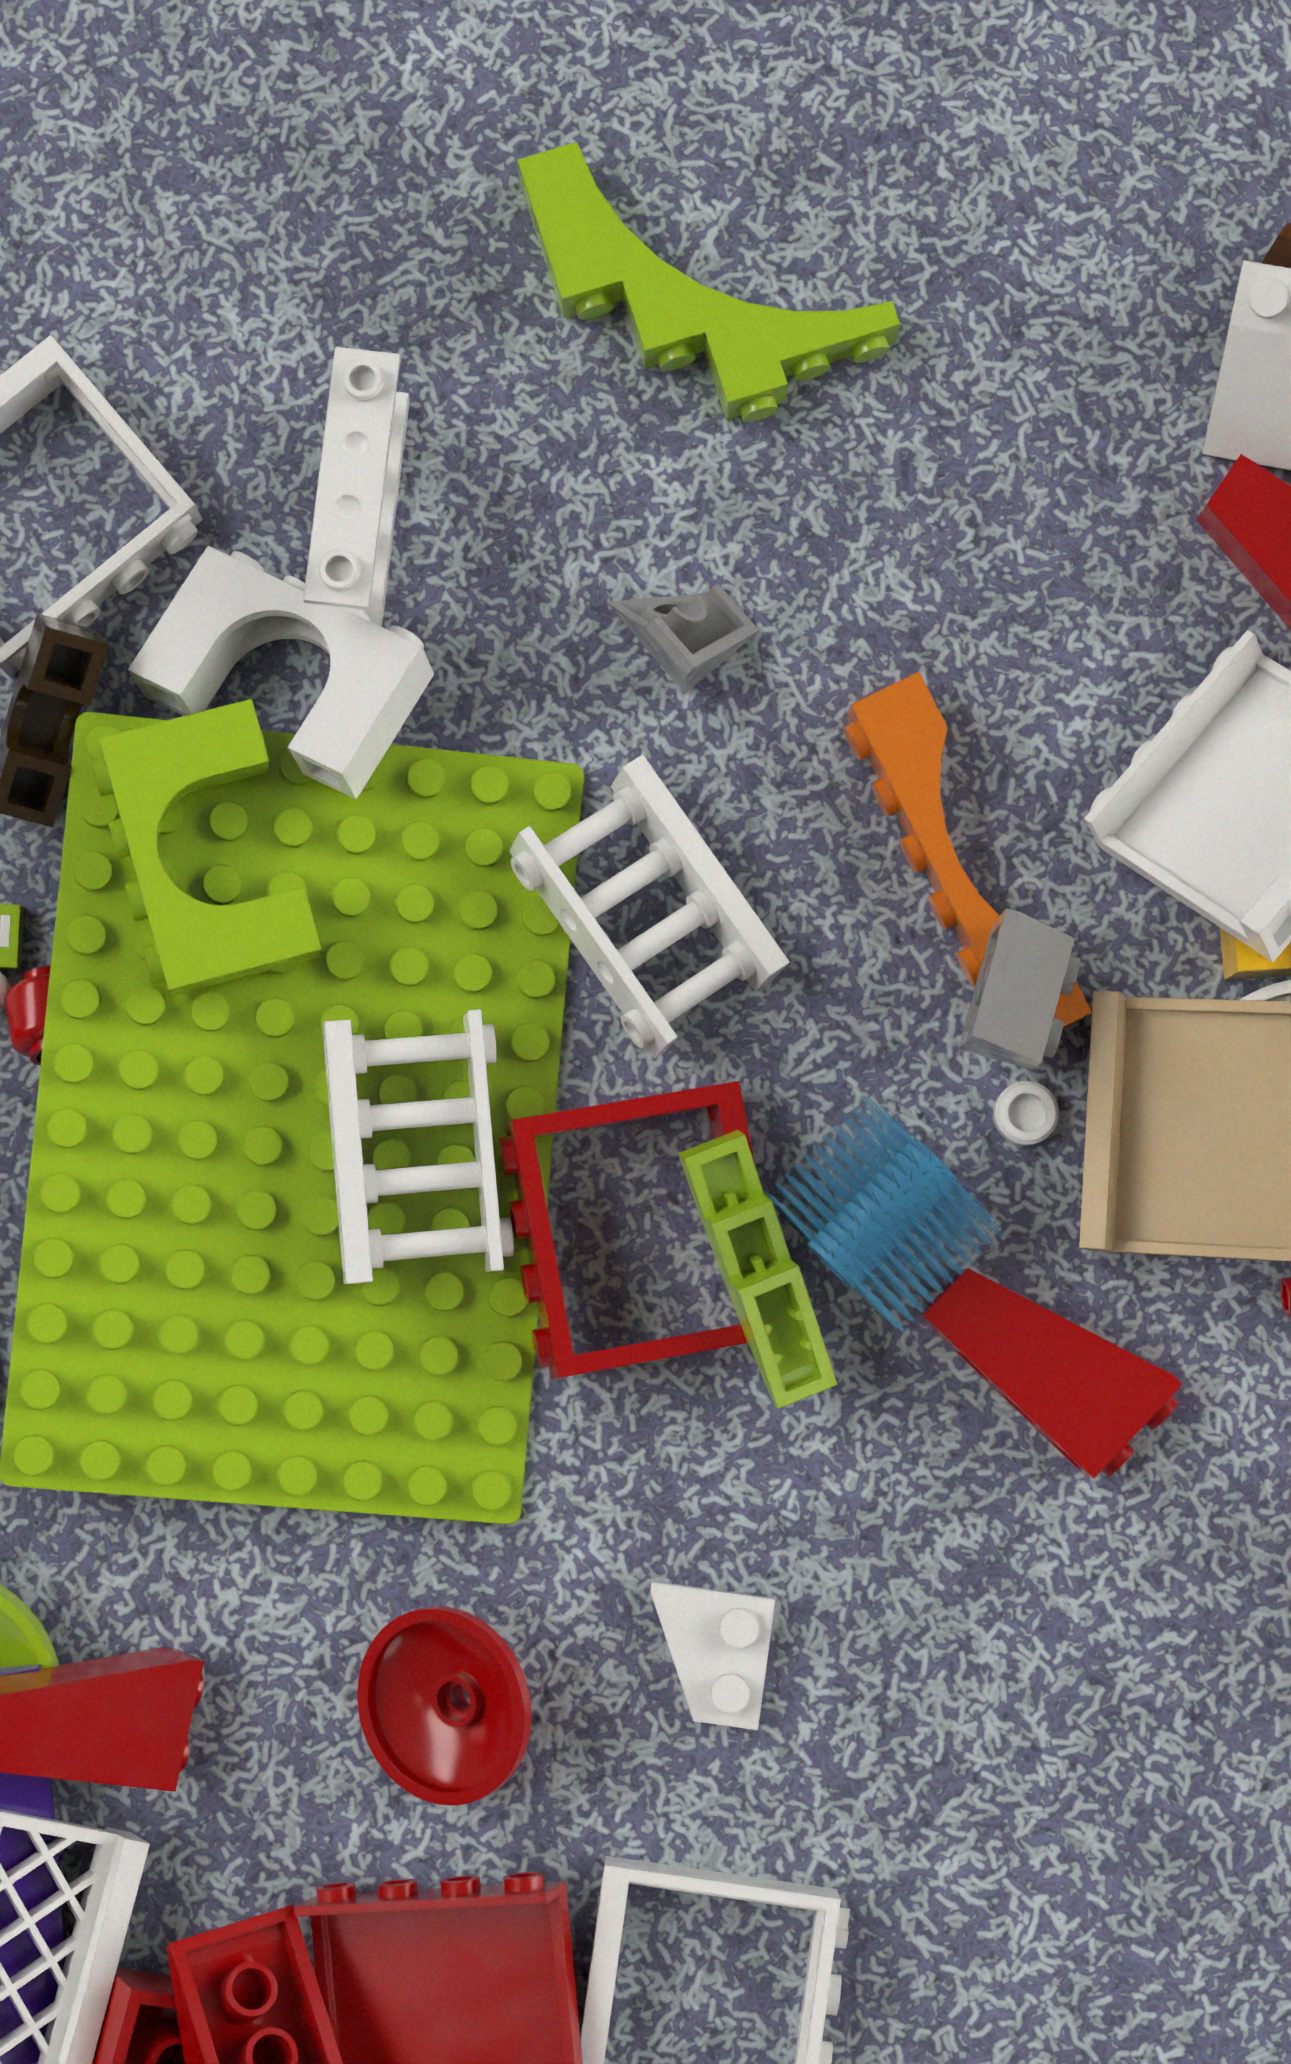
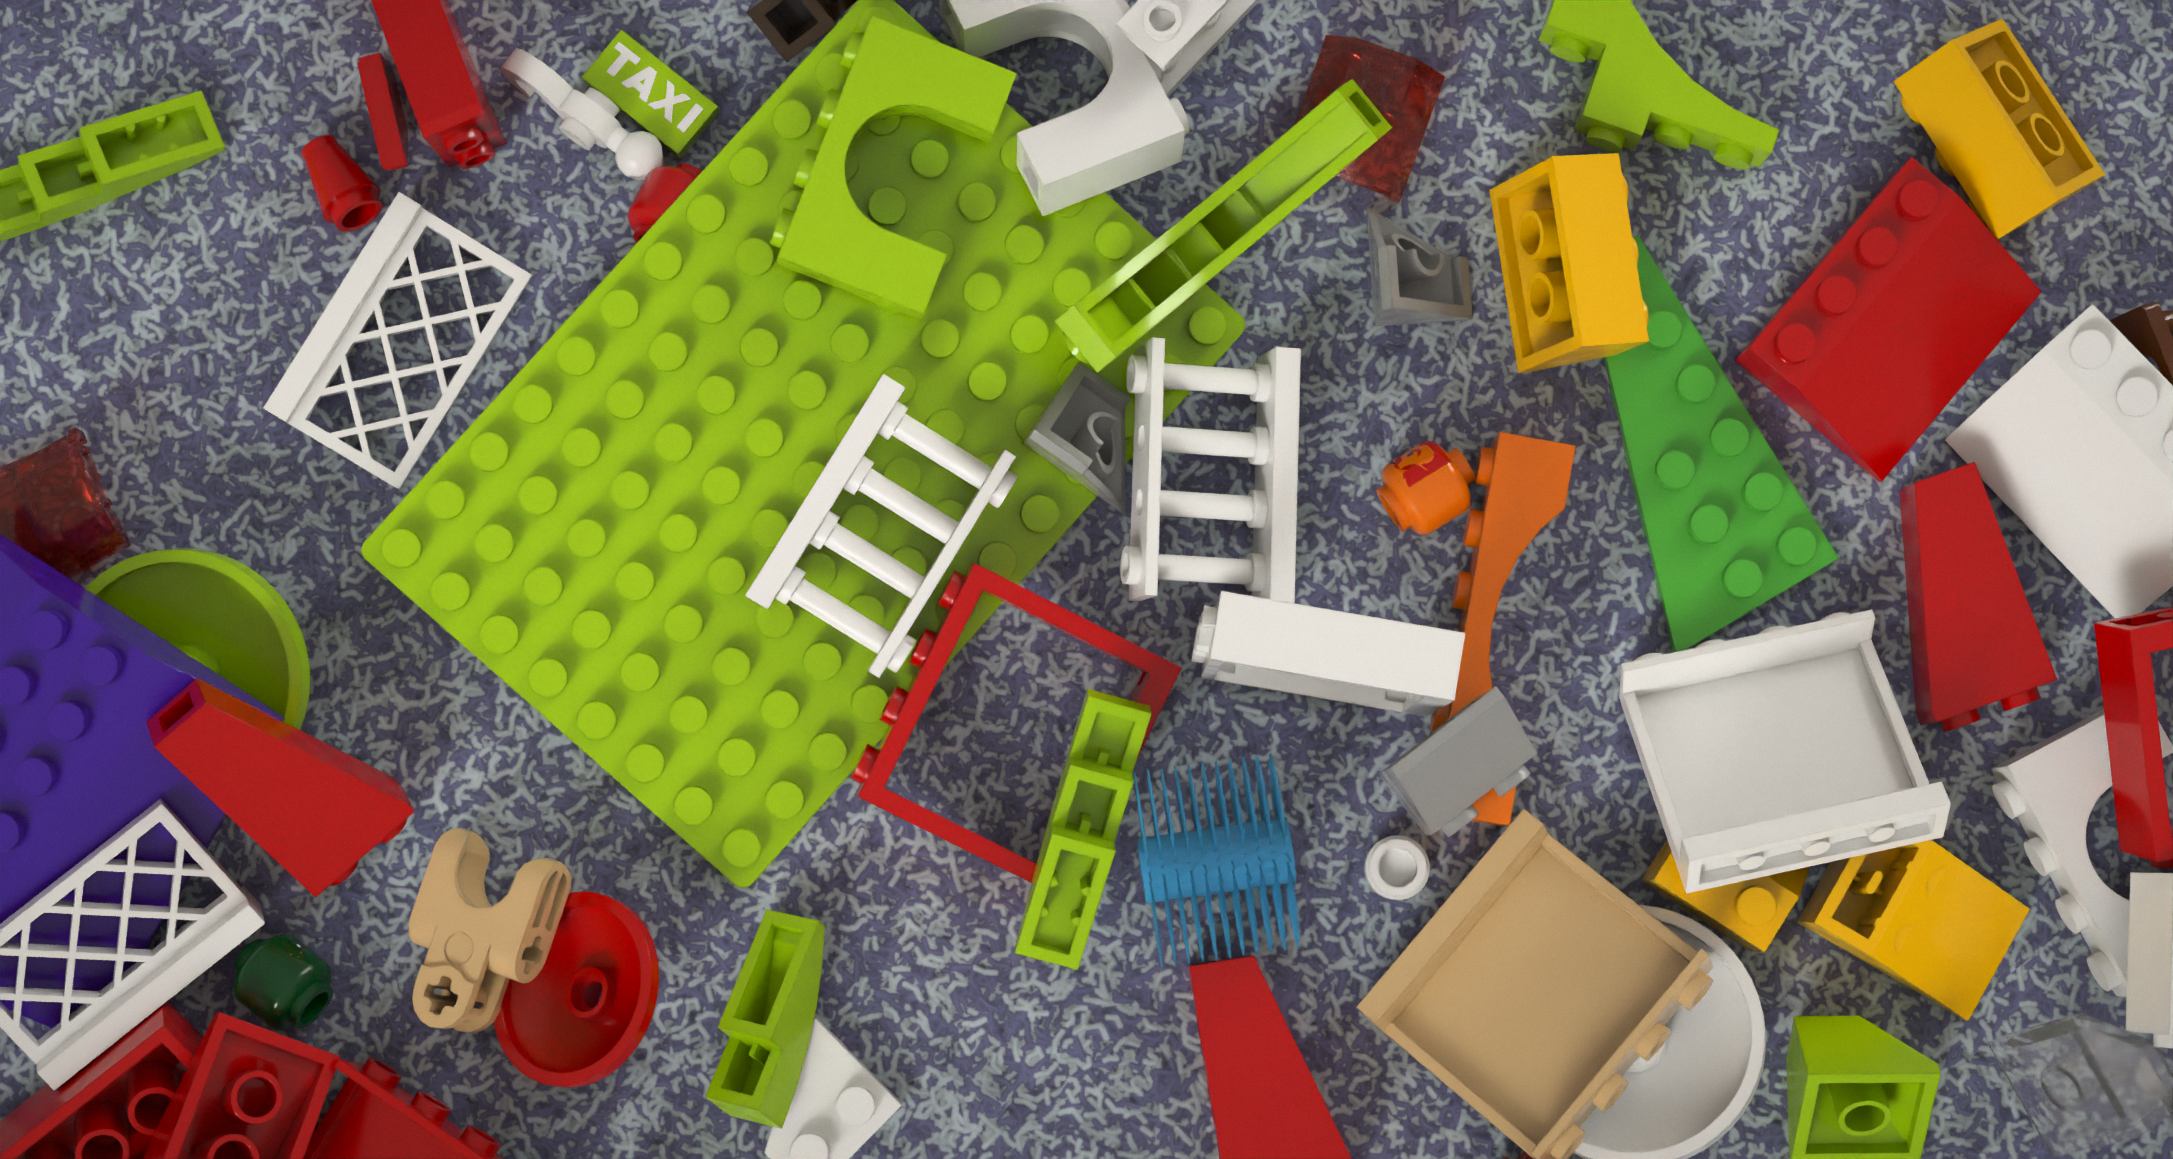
camera: 40 degrees right, 0 degrees up
(199, 1880) = (282, 982): none -> dark green head
(332, 1730) = (477, 944): none -> tan piece
(509, 702) = (1222, 227): none -> lime arch
(520, 950) = (1086, 434): none -> light grey slope
(551, 530) = (1400, 90): none -> clear red slope
(619, 1611) = (770, 1020): none -> lime slope
(804, 528) = (1569, 262): none -> yellow slope
(824, 792) = (1426, 488): none -> orange head
(852, 981) = (1328, 654): none -> white window
(1039, 624) = (1704, 479): none -> bright green wing
(1061, 175) = (1997, 128): none -> yellow slope
(1090, 389) = (1891, 320): none -> red slope

